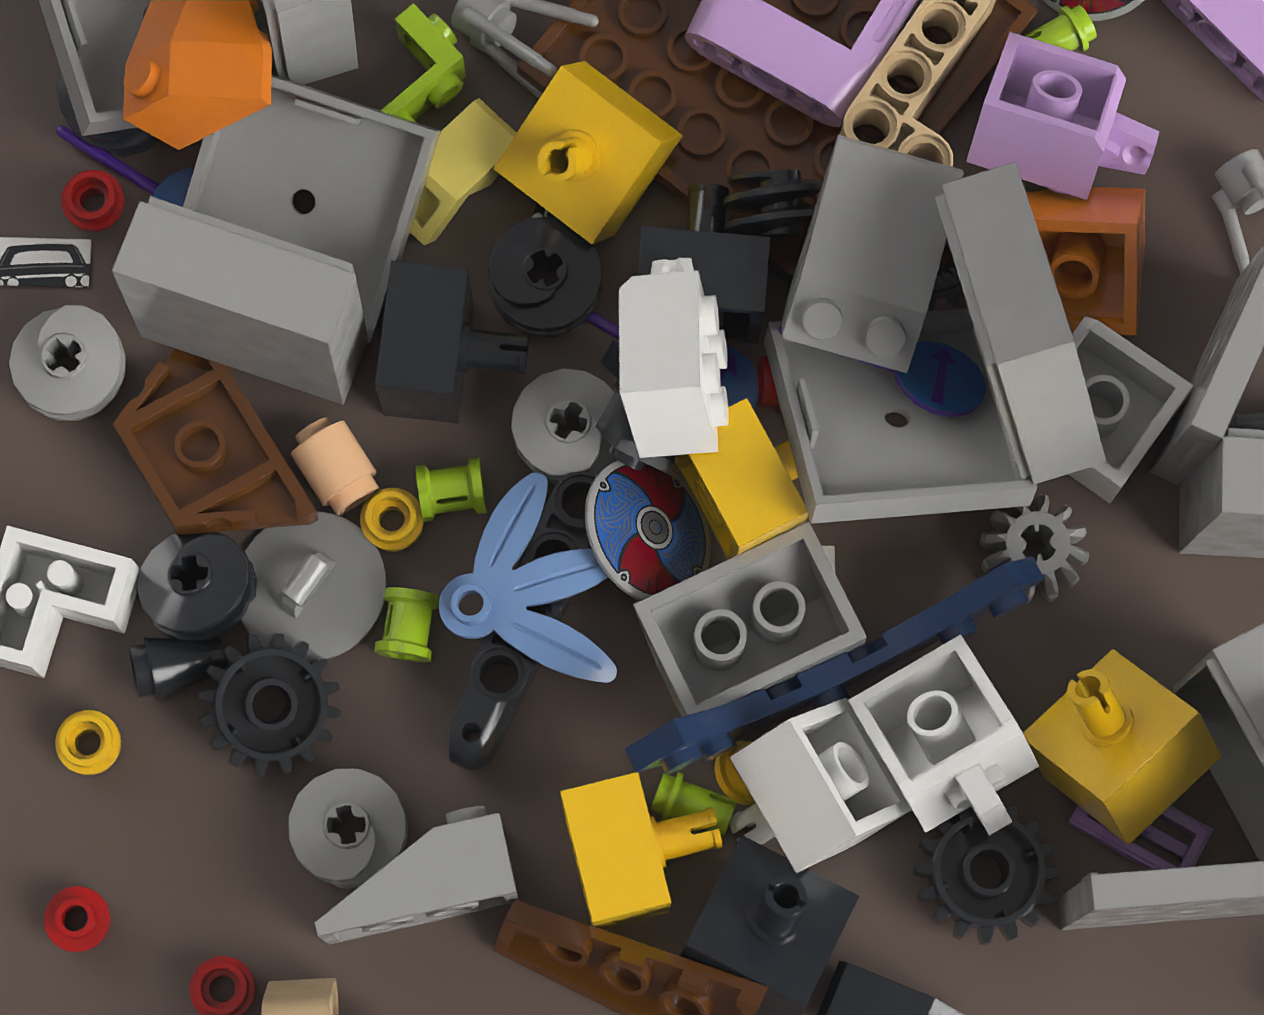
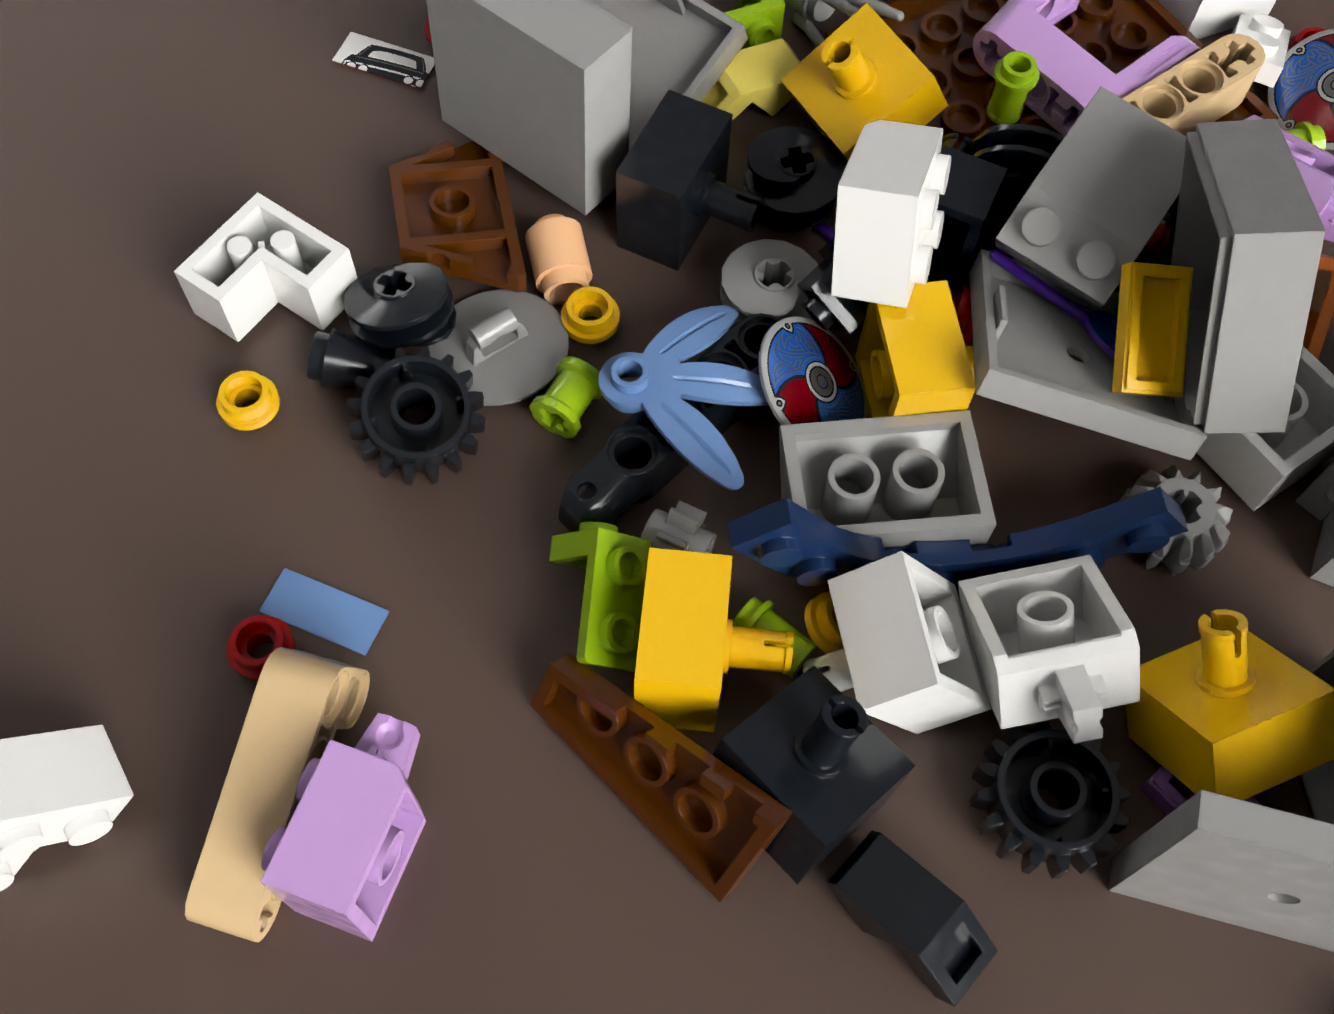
camera: 20 degrees right, 15 degrees down
(85, 338) = (375, 119): light grey piece -> none
(92, 933) = (166, 555): red plate -> none
(260, 928) = (324, 611): none -> medium blue sticker
(323, 804) = (452, 569): light grey piece -> none
(438, 877) = (489, 604): light grey slope -> none
(451, 489) = (633, 296): lime bush -> none
(532, 822) = (611, 594): none -> lime bracket
(572, 747) = (679, 529): none -> light grey gear
(744, 94) = (1014, 78): none -> lime pin
(958, 391) = (1152, 330): none -> yellow tile

